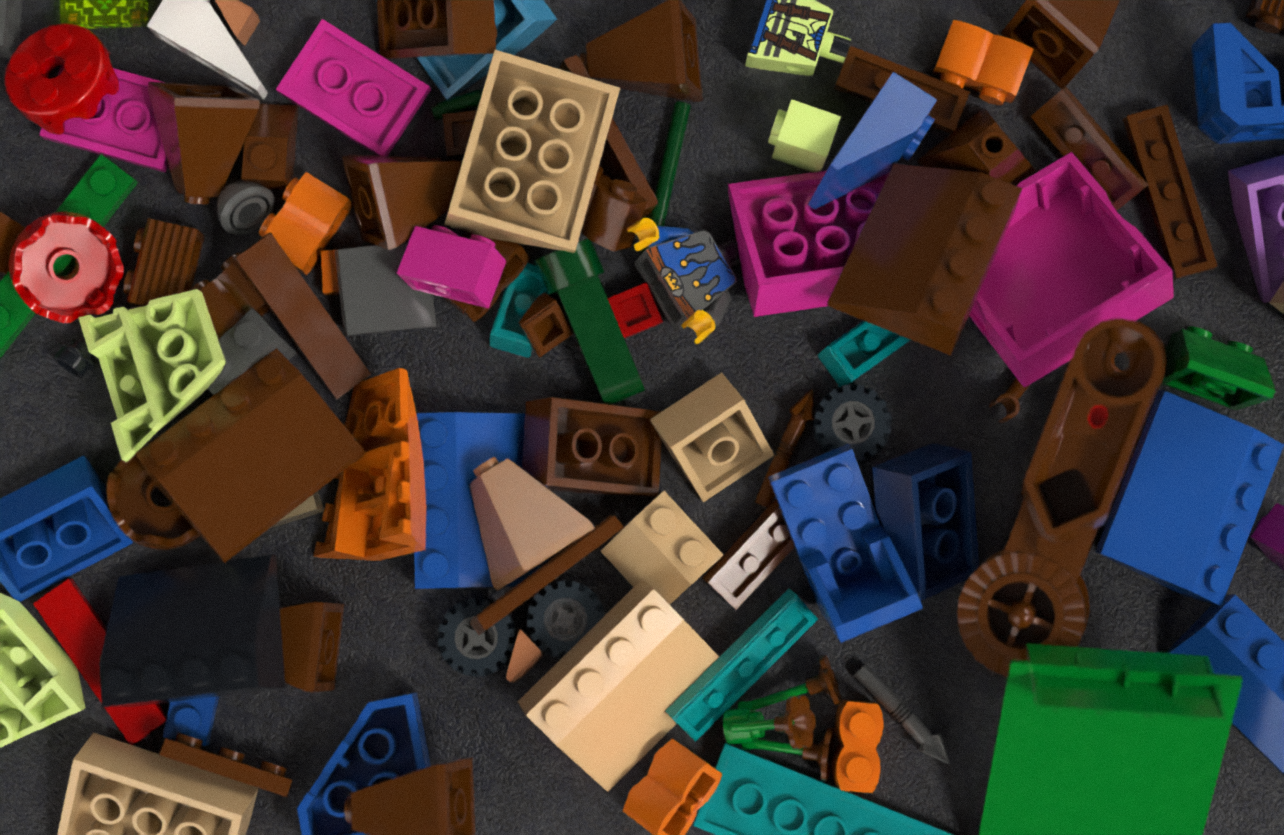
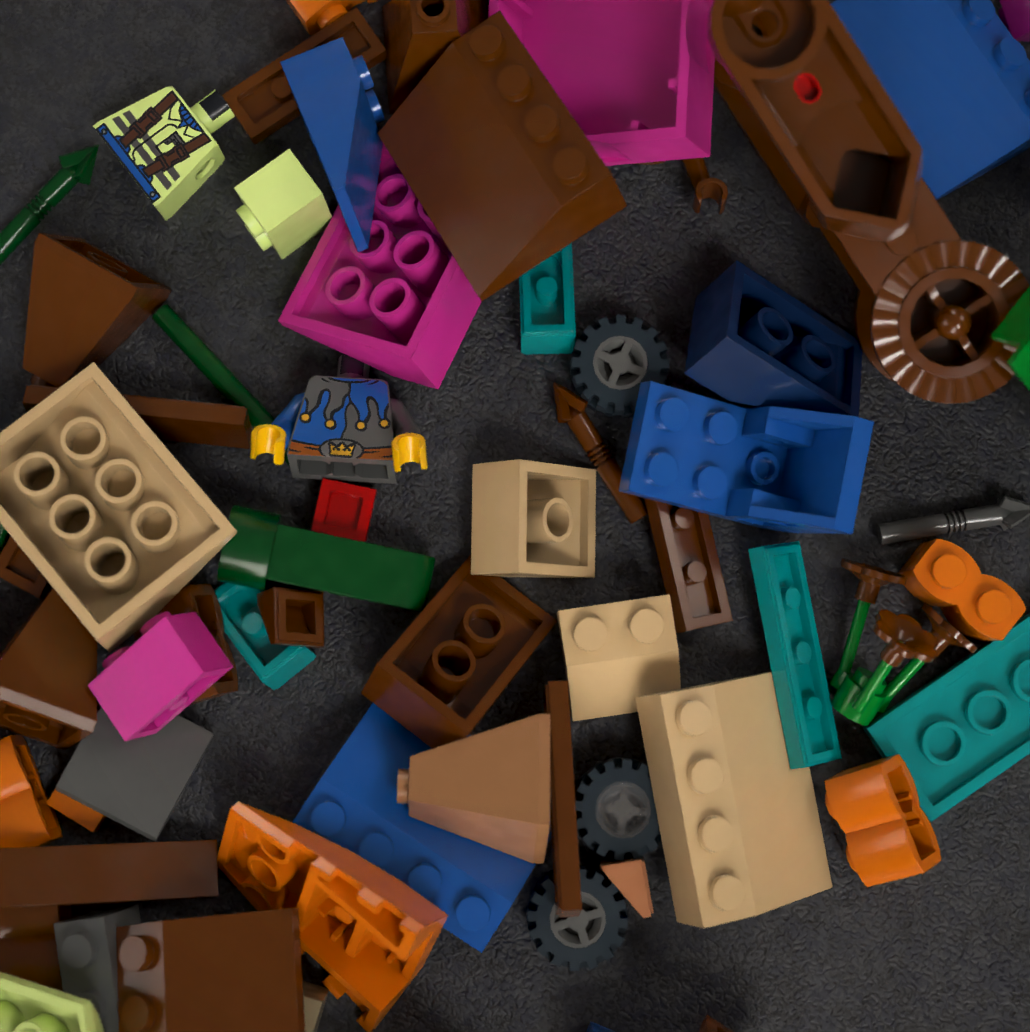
camera: 55 degrees left, 0 degrees up
(611, 211) = (221, 462): reddish brown brick -> none

